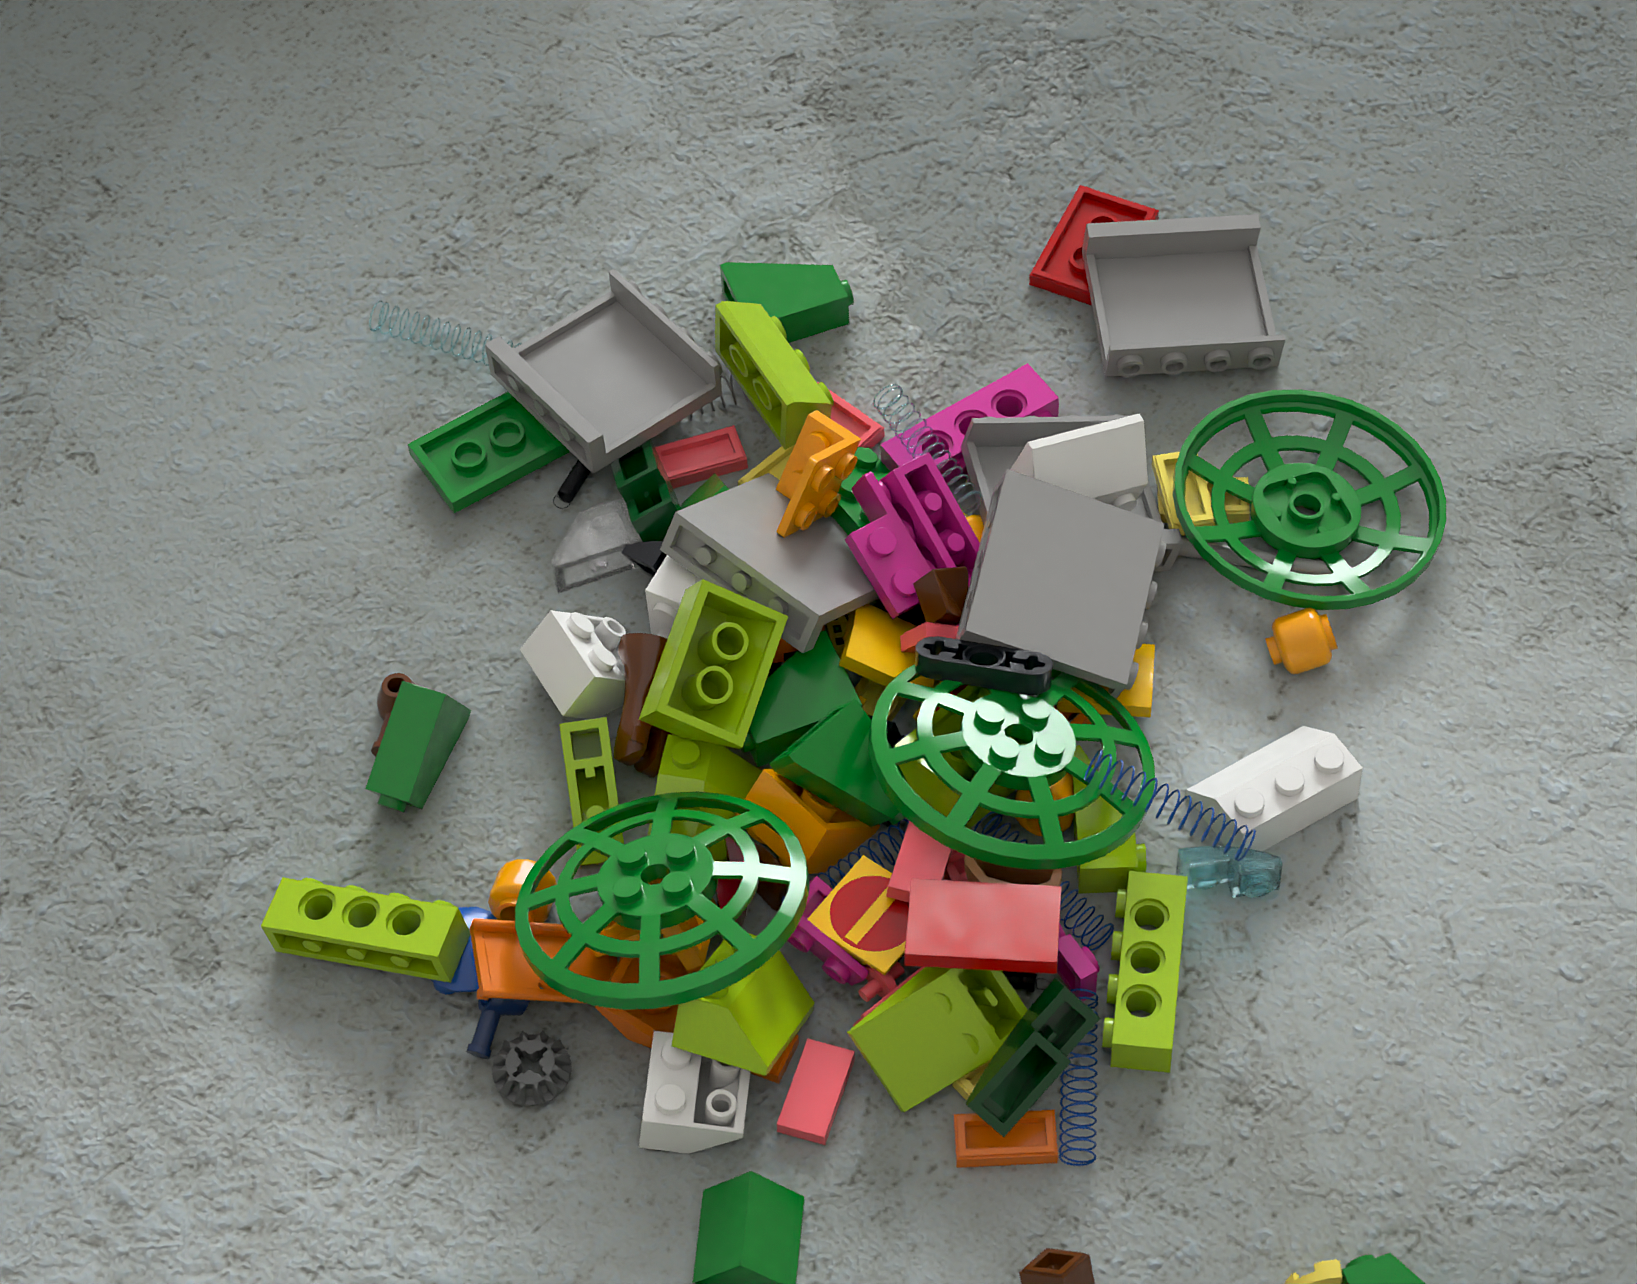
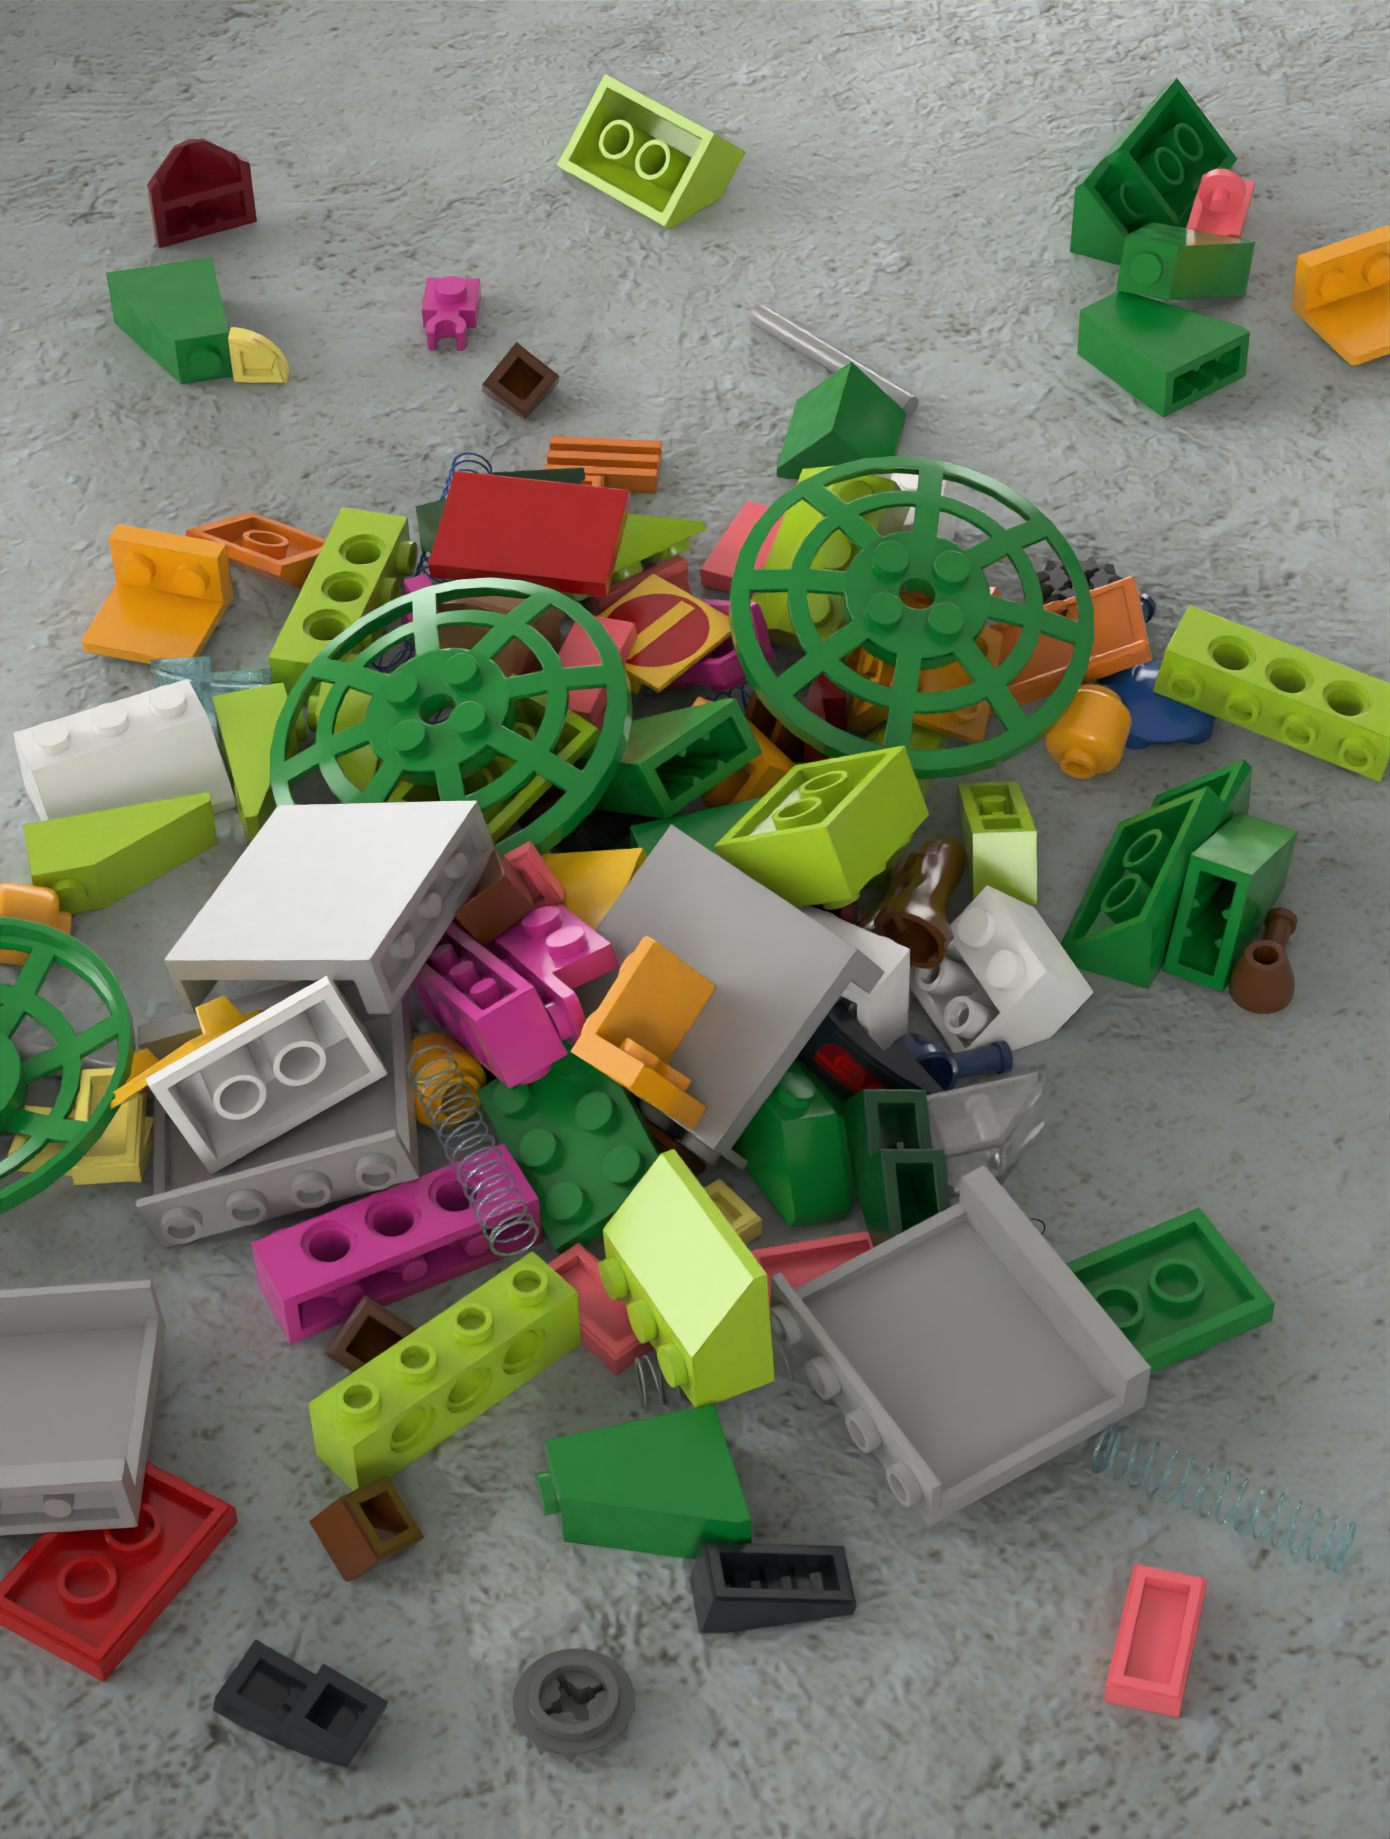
camera: 175 degrees left, 10 degrees down
(470, 768) = (1137, 887): none -> green slope
(487, 266) = (1156, 1640): none -> coral tile
(627, 596) = (949, 1067): none -> dark blue bar
(715, 251) = (749, 1608): none -> black slope
(815, 183) = (587, 1678): none -> dark grey gear
(920, 347) = (446, 1373): none -> lime brick
(949, 272) = (366, 1528): none -> reddish brown slope
(953, 180) = (300, 1710): none -> black slope
(964, 660) = (511, 790): black beam -> none
(968, 1179) = (622, 462): none -> orange tile
(969, 376) = (366, 1334): none -> reddish brown slope
(1137, 480) = (215, 1020): none -> yellow piece
(1162, 839) = (245, 736): none -> lime slope
(1166, 799) = (266, 658): blue piece -> none
(1235, 1035) = (264, 547): none -> orange slope
(1261, 710) = (117, 850): none -> lime slope
(1305, 958) = (163, 598): none -> light orange bracket

